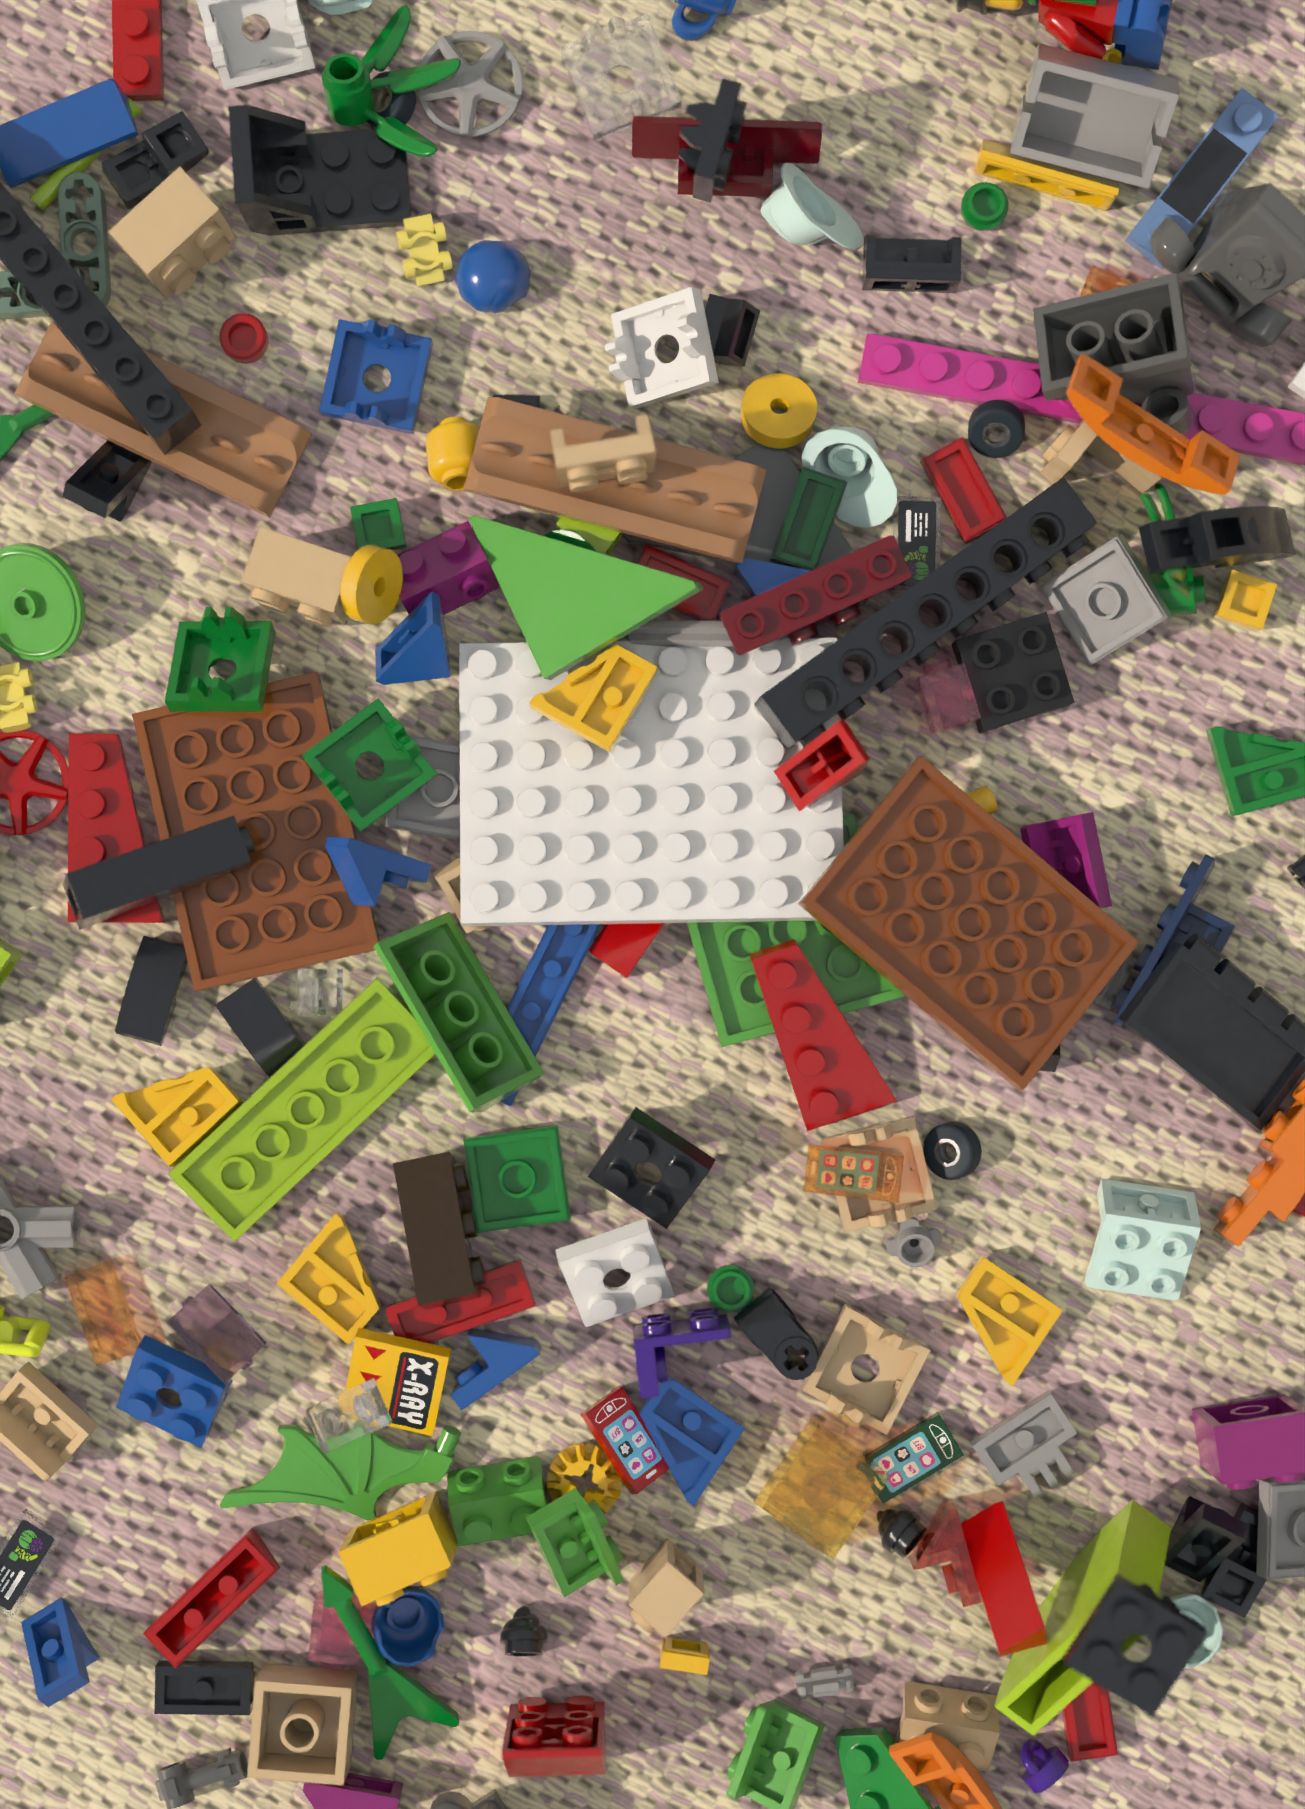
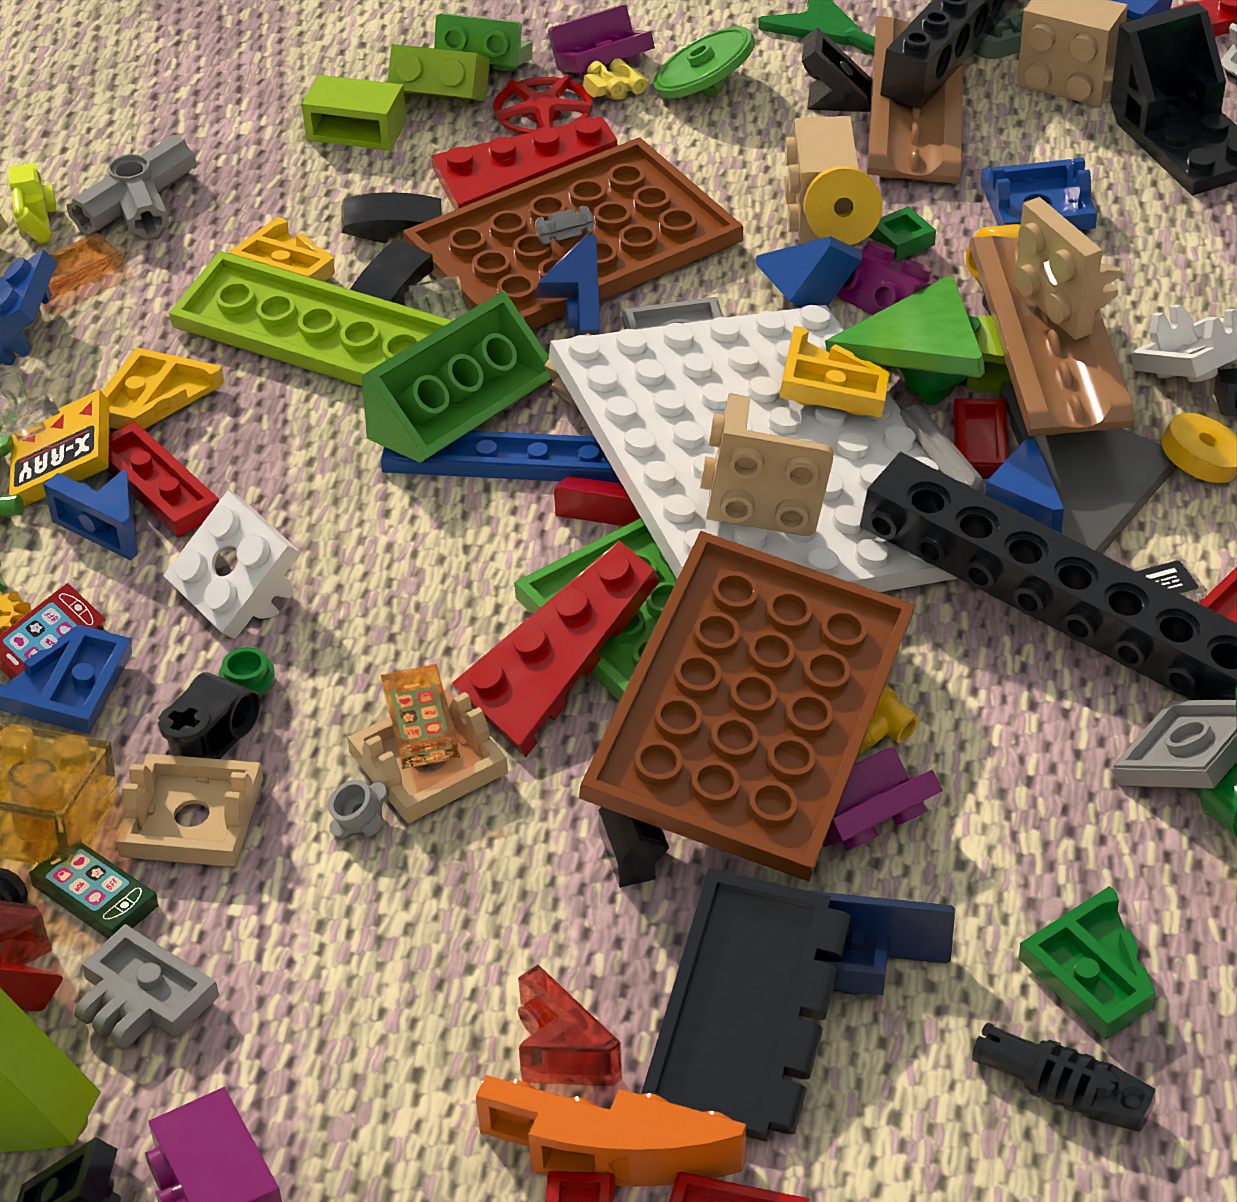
camera: 75 degrees right, 45 degrees down
(156, 871) = (497, 152): black slope -> none
(205, 643) = (715, 166): green piece -> none
(216, 1333) = (73, 317): piece -> none
(244, 338) = (1015, 127): red tile -> none
(264, 841) = (564, 225): none -> light grey piece
(381, 734) = (663, 244): green piece -> none
(421, 240) = (1175, 196): light yellow piece -> none
(438, 1230) = (228, 425): dark brown brick -> none
(492, 276) = (1186, 239): blue hair -> none
(517, 1178) = (306, 483): green plate -> none
(647, 1140) = (356, 564): black piece -> none
(661, 1331) = (154, 604): dark purple bracket -> none
(735, 850) = (763, 476): none -> tan bracket
(809, 519) = (1111, 487): dark green tile -> none
(816, 597) = (1033, 495): dark red bracket -> none
(823, 765) = (862, 538): red slope -> none
(854, 458) = (1182, 504): light aqua piece -> none
(946, 696) = (994, 652): clear pink brick -> none
(966, 1145) = (482, 819): black wheel -> none
(1006, 1316) = (300, 920): yellow wing -> none
(1014, 671) = (1058, 700): black brick -> none
(1143, 1239) = (440, 1013): light aqua bracket -> none
(1200, 1158) = (565, 1039): none -> clear red slope

